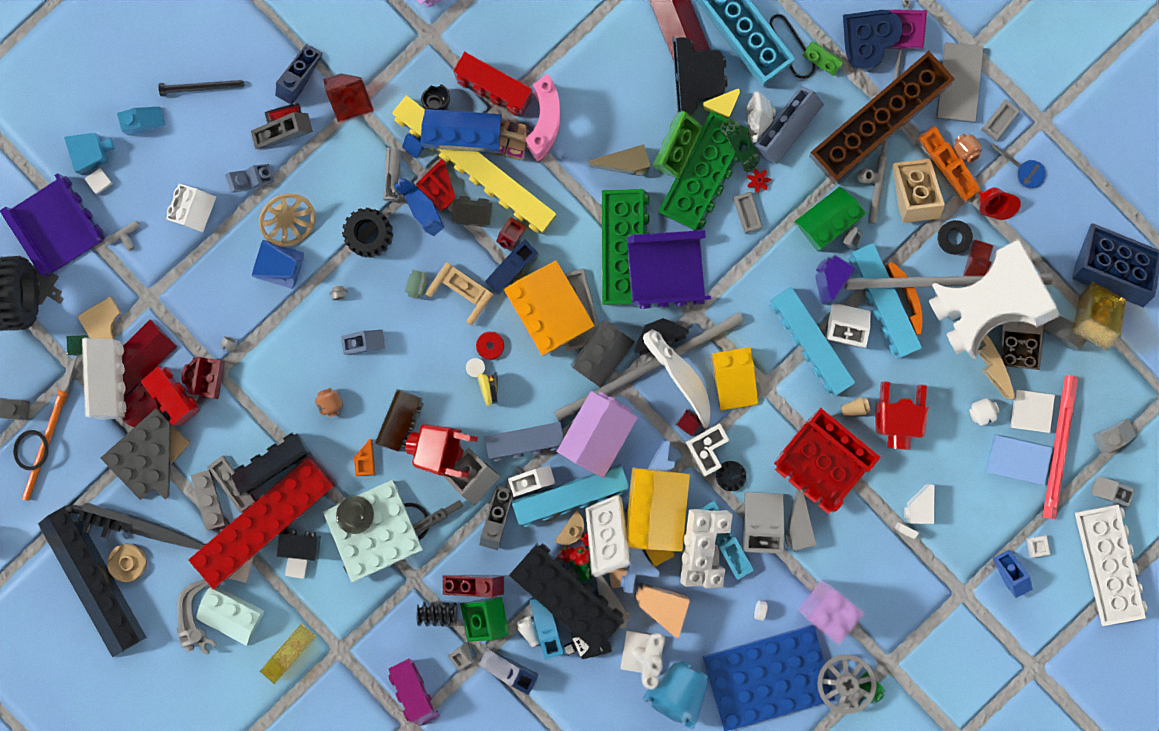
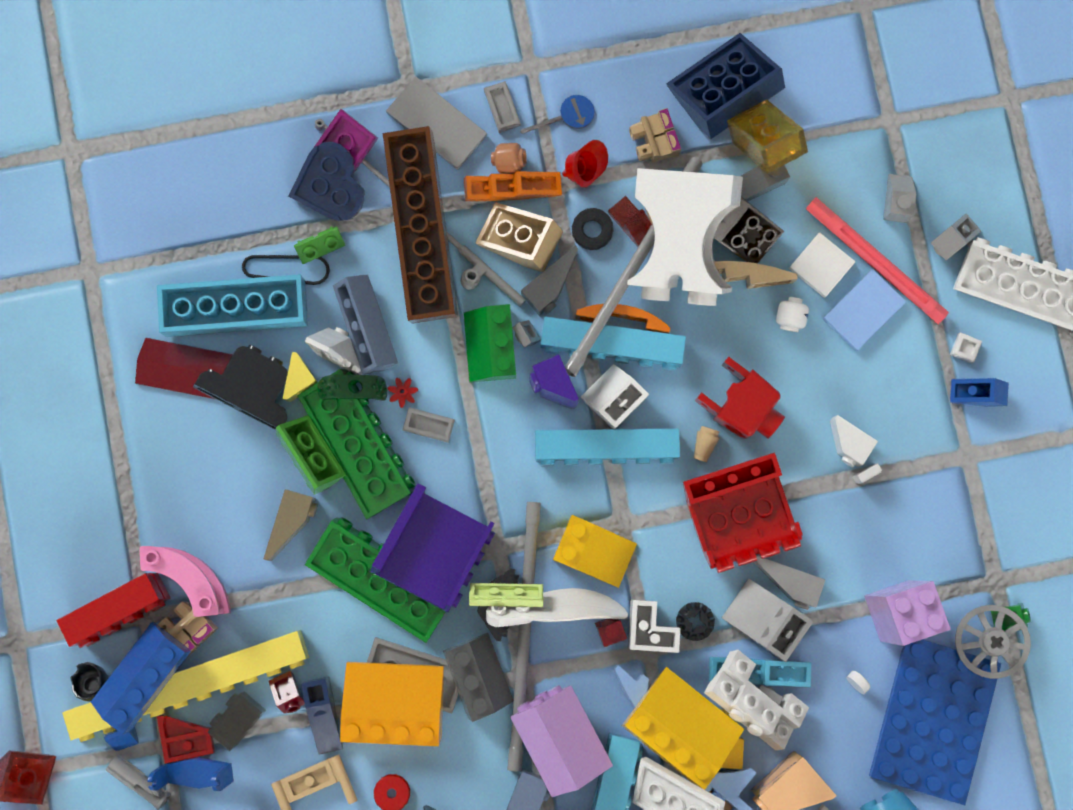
camera: 65 degrees left, 5 degrees down
(669, 336) = (506, 595): none -> yellowish green tile
(891, 231) = (546, 287): none -> dark grey slope
(1050, 241) = (658, 135): none -> tan hips

